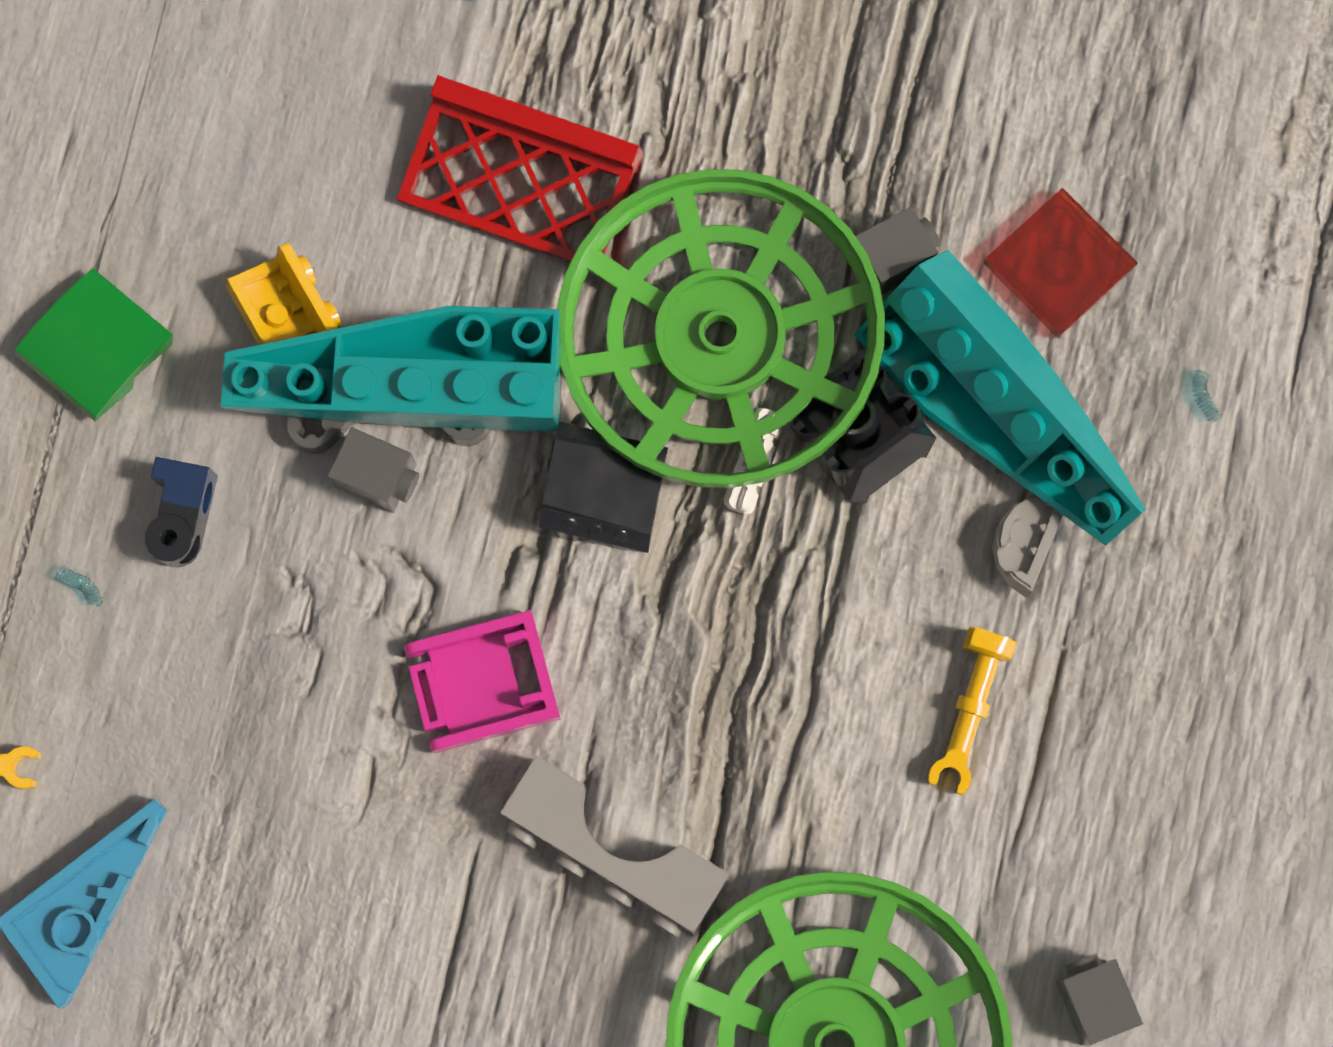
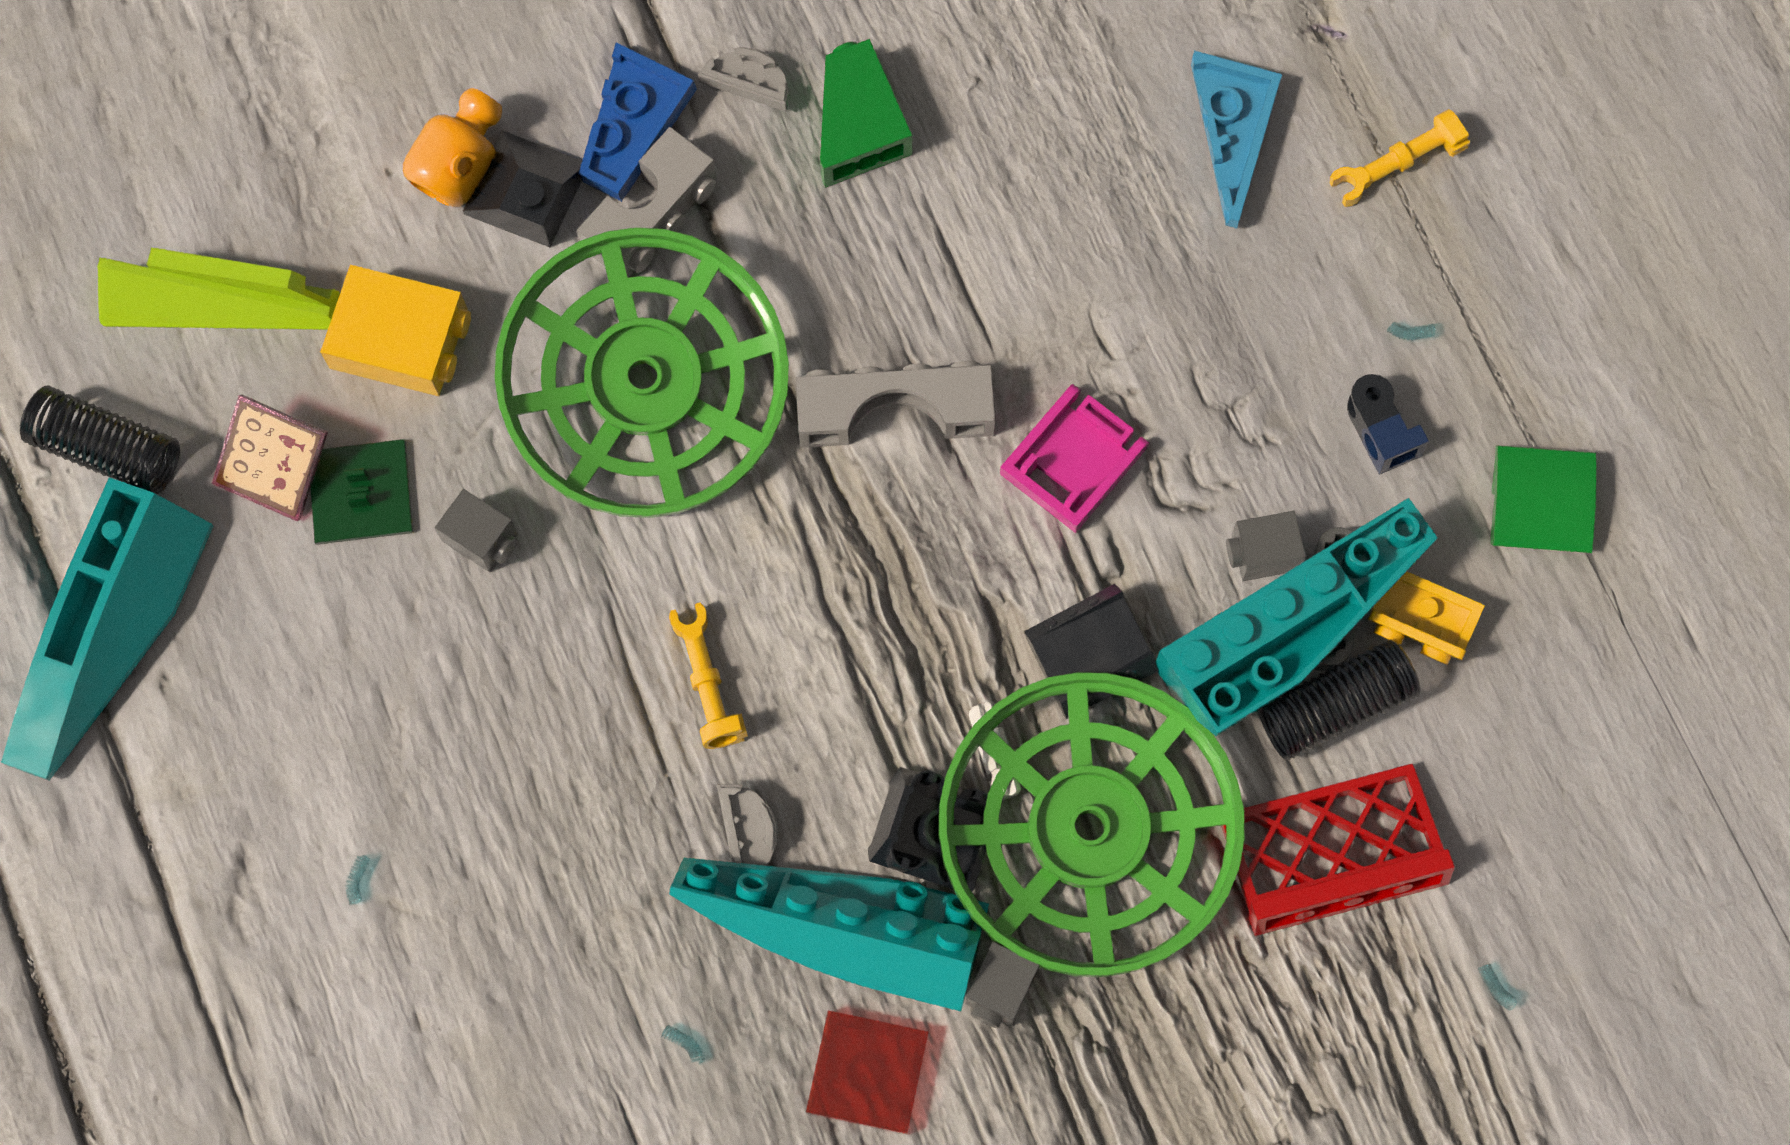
camera: 145 degrees right, 5 degrees down
(410, 277) = (1280, 720): none -> black piece

